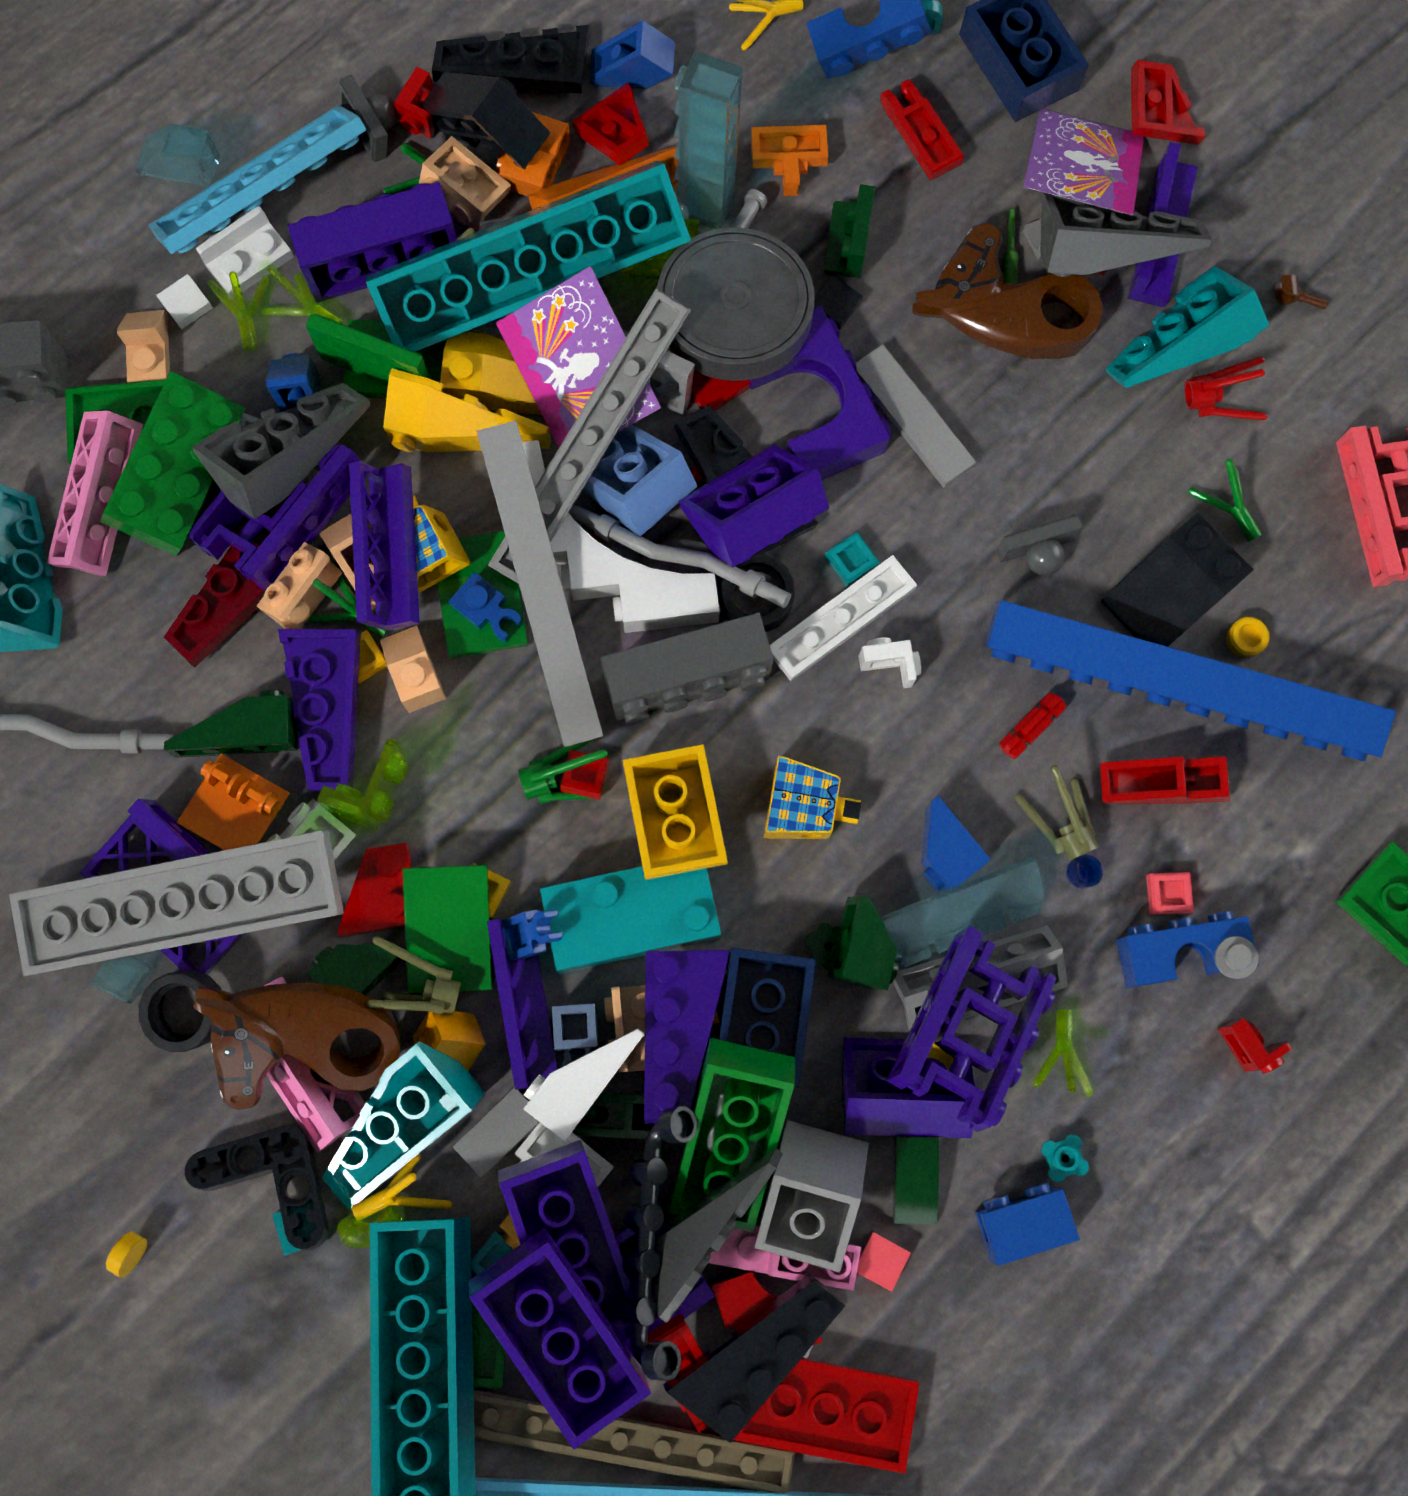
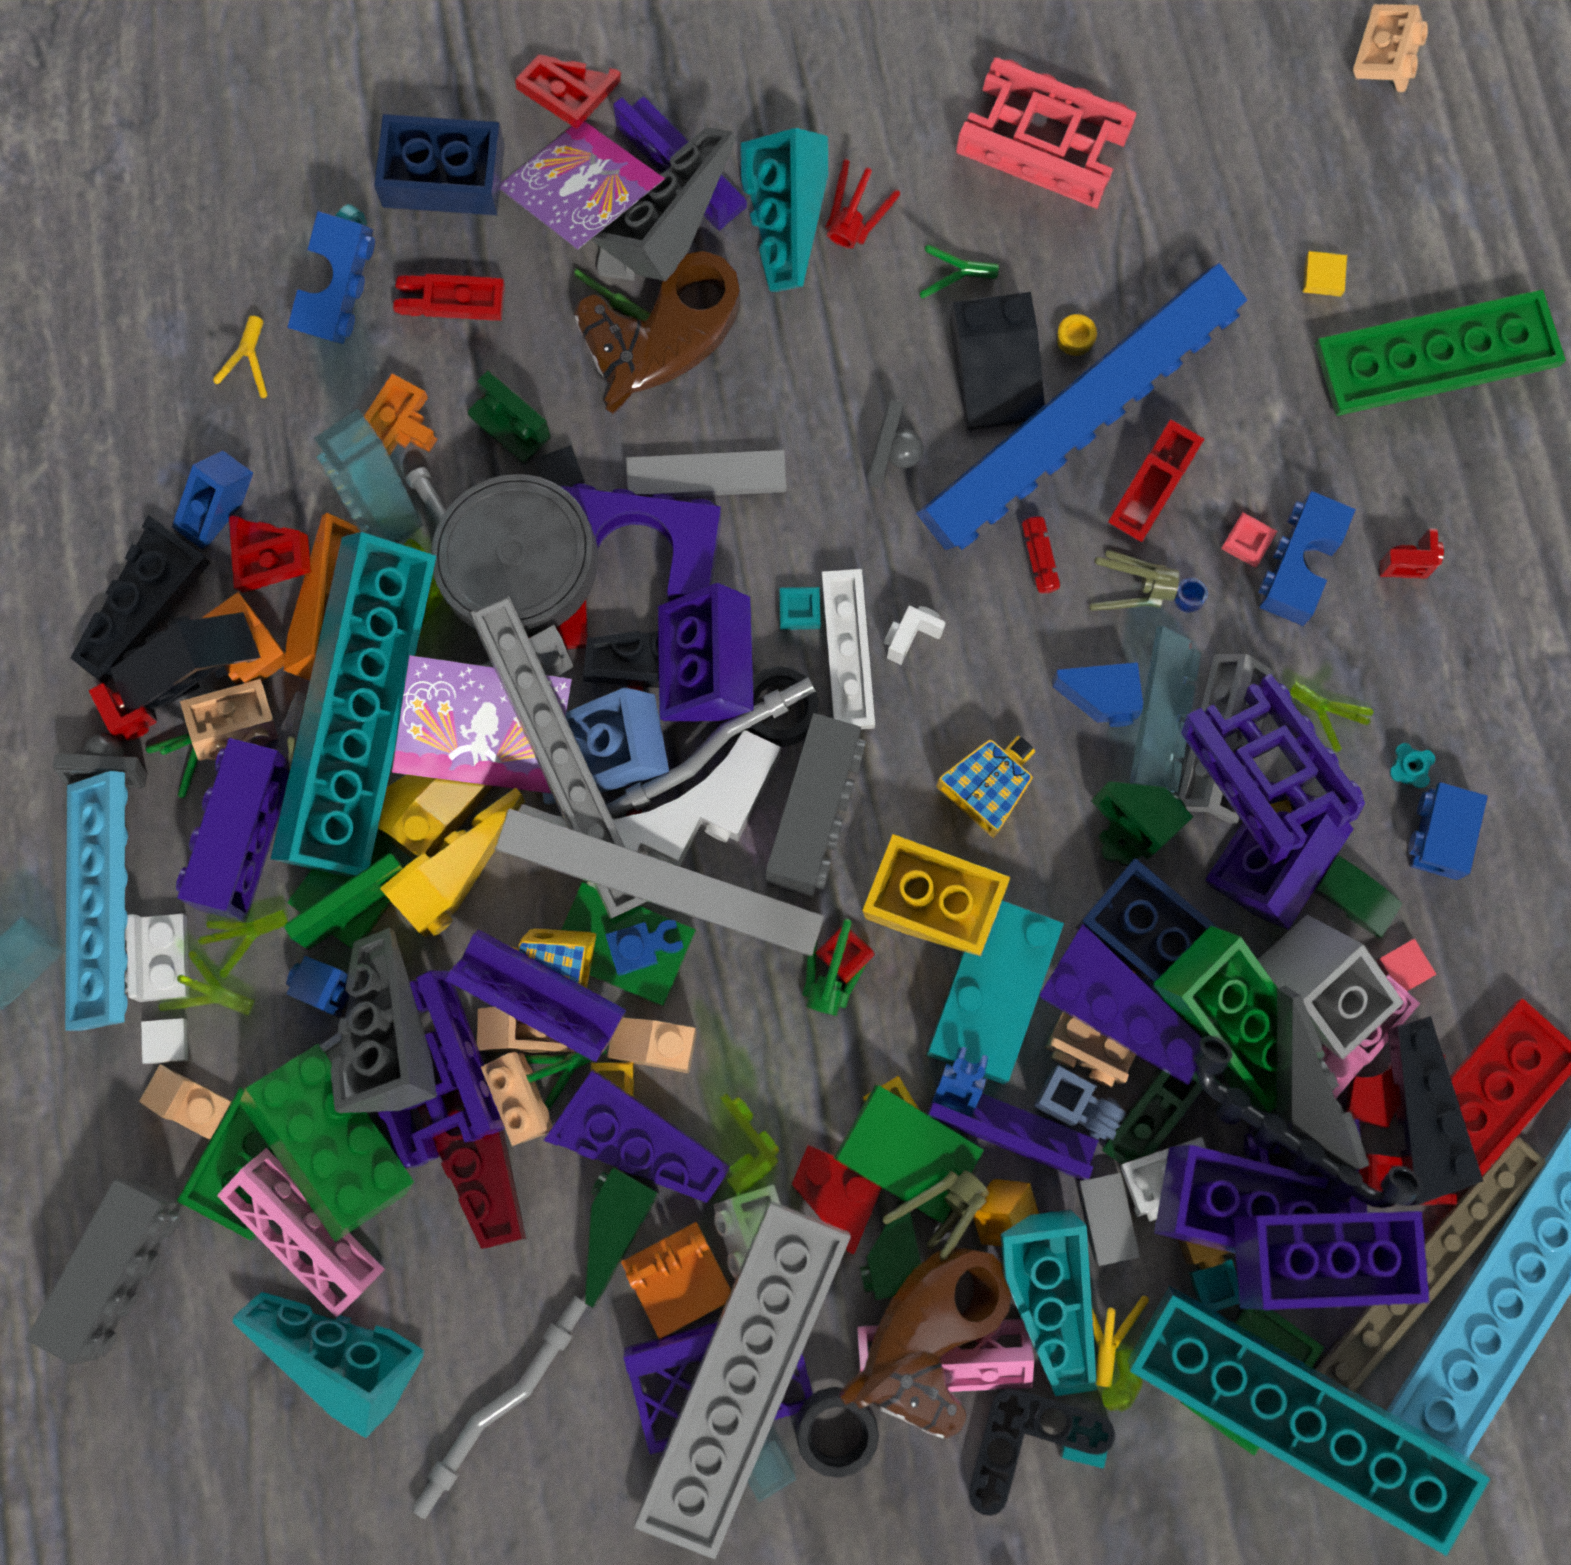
camera: 55 degrees left, 0 degrees up
(572, 1089) = (1119, 1124): white slope -> none
(1236, 957) = (1340, 522): light grey plate -> none
(1289, 292) = (803, 100): reddish brown hand -> none

